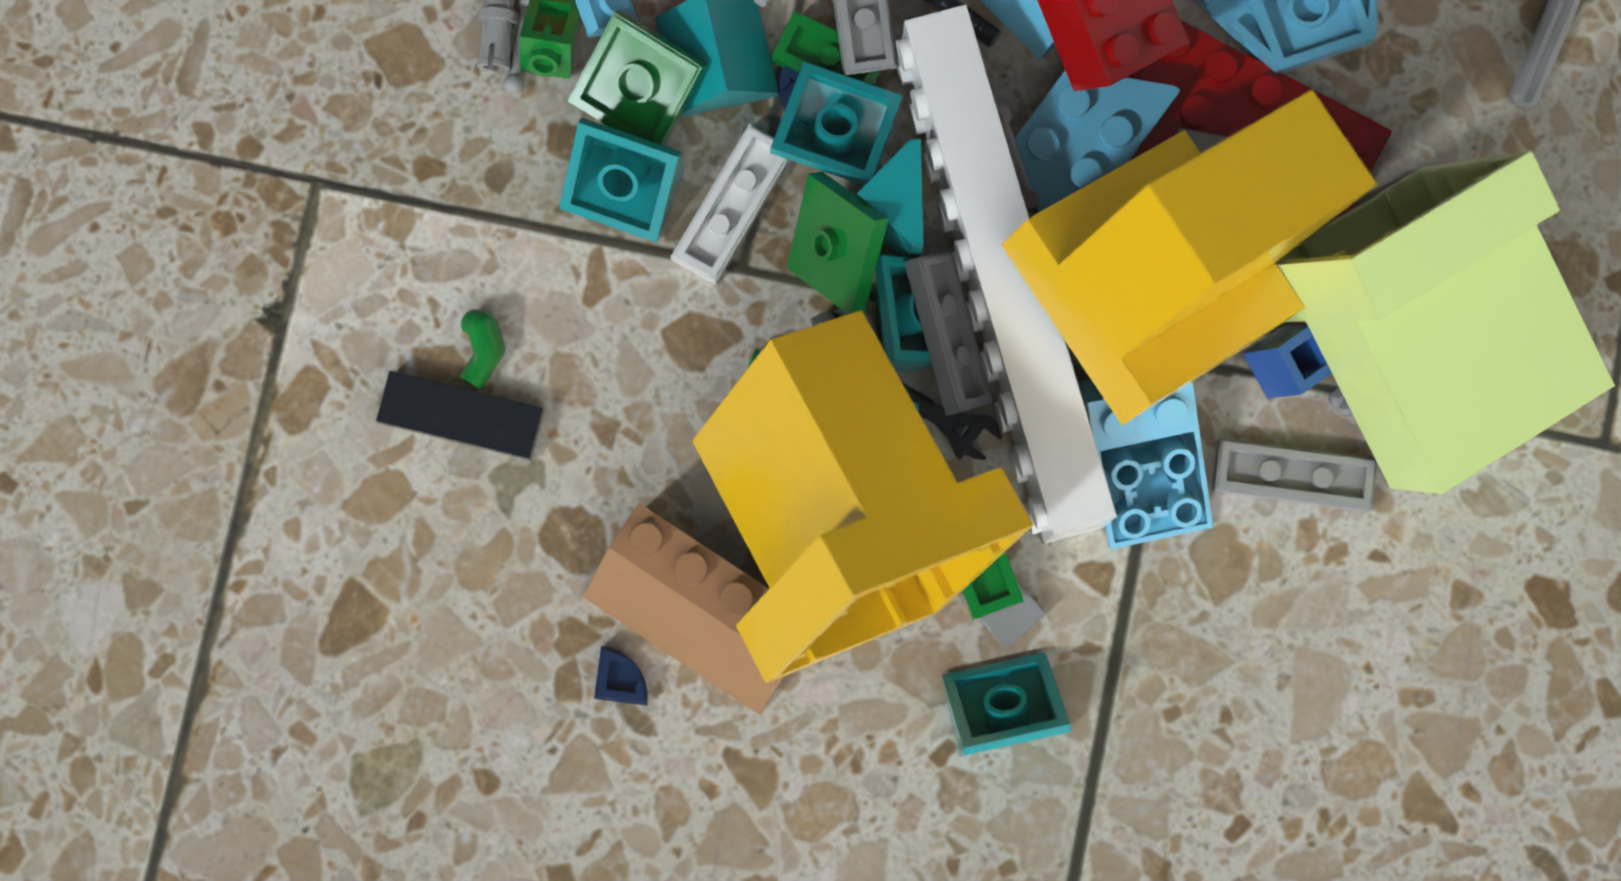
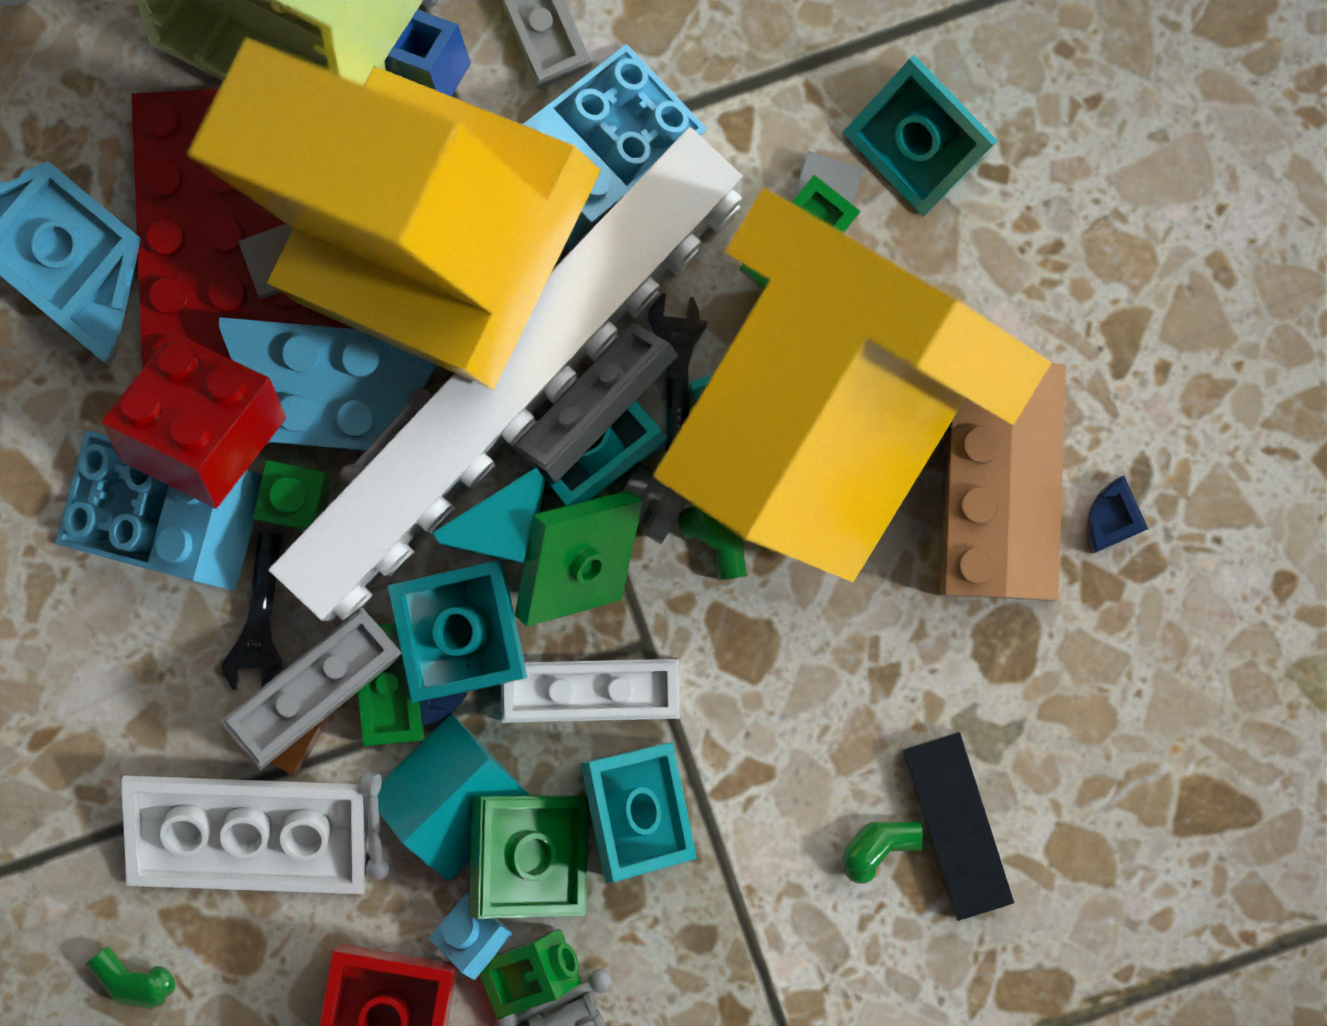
camera: 120 degrees left, 5 degrees up
(1014, 67) = (292, 495): none -> green brick

